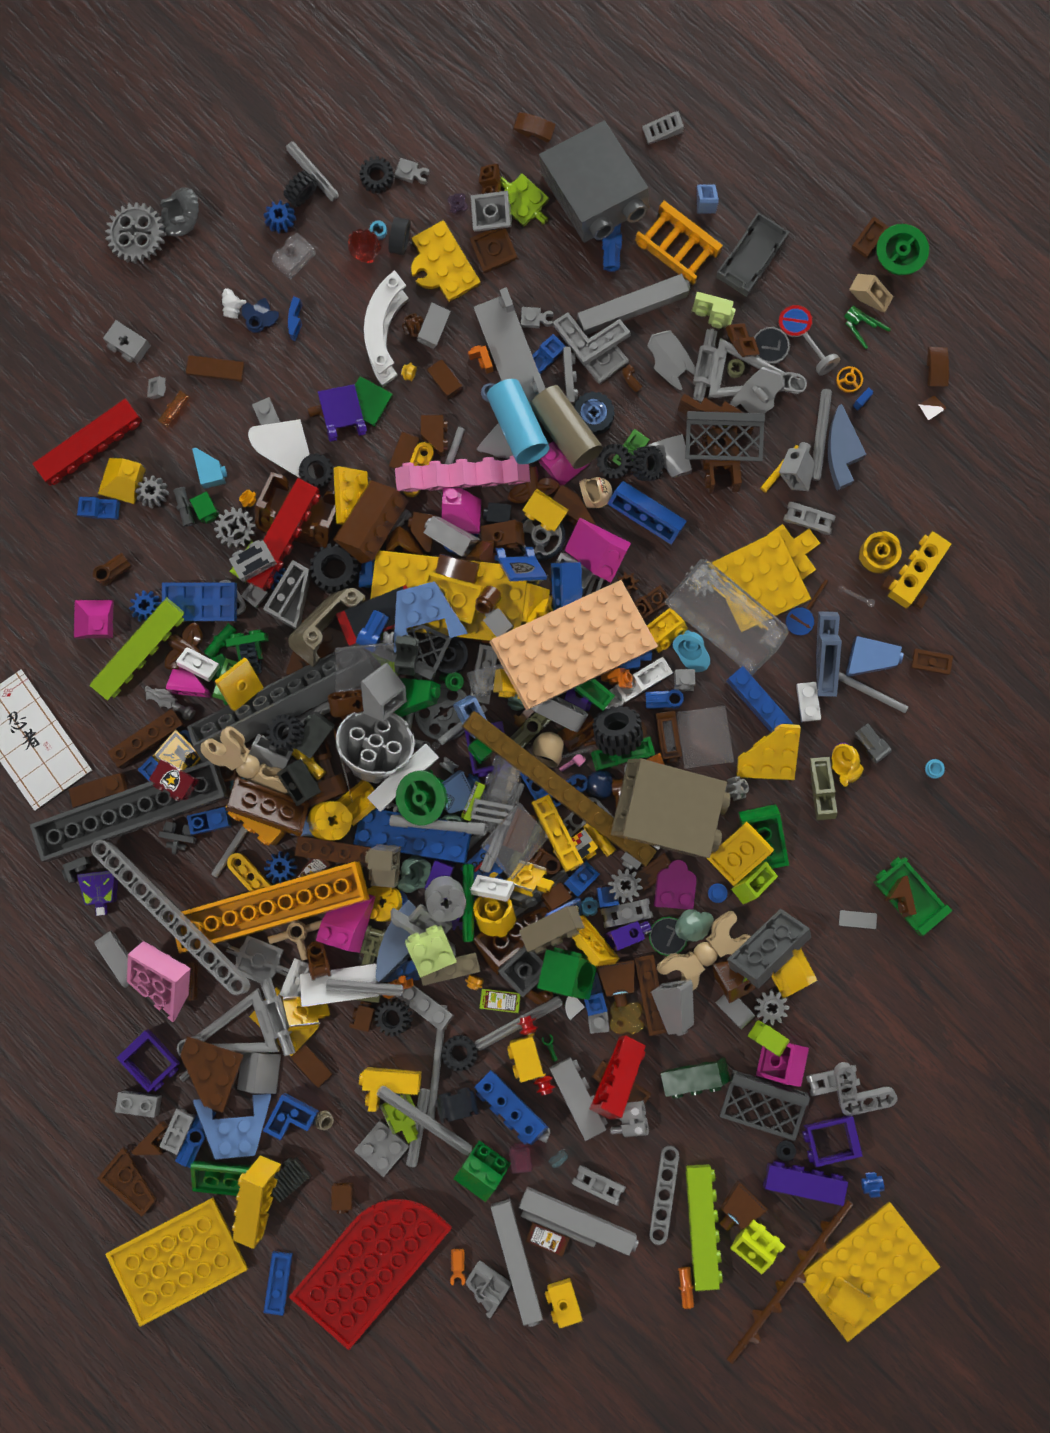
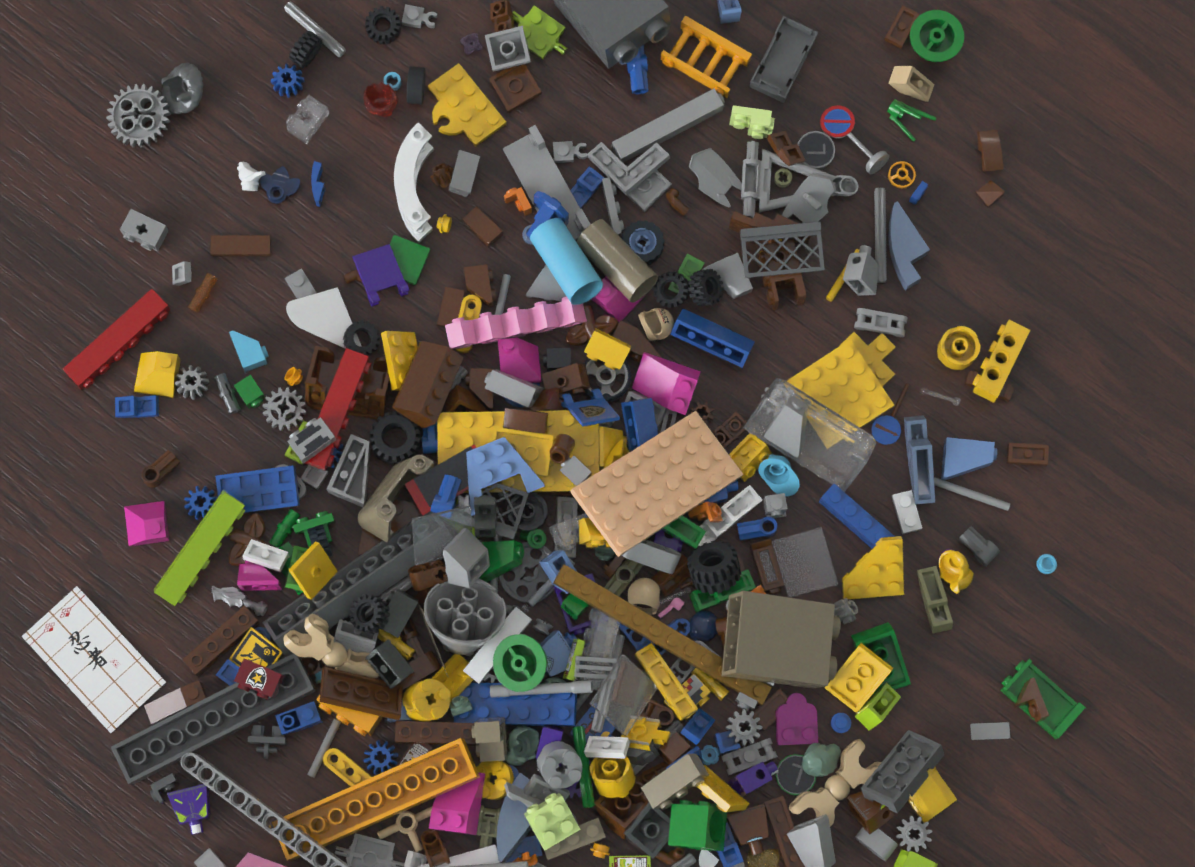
camera: 15 degrees left, 5 degrees down
(360, 829) = (460, 705): none -> sand green plate
(508, 369) = (548, 209): none -> blue piece
(708, 606) = (789, 426): none -> light grey slope

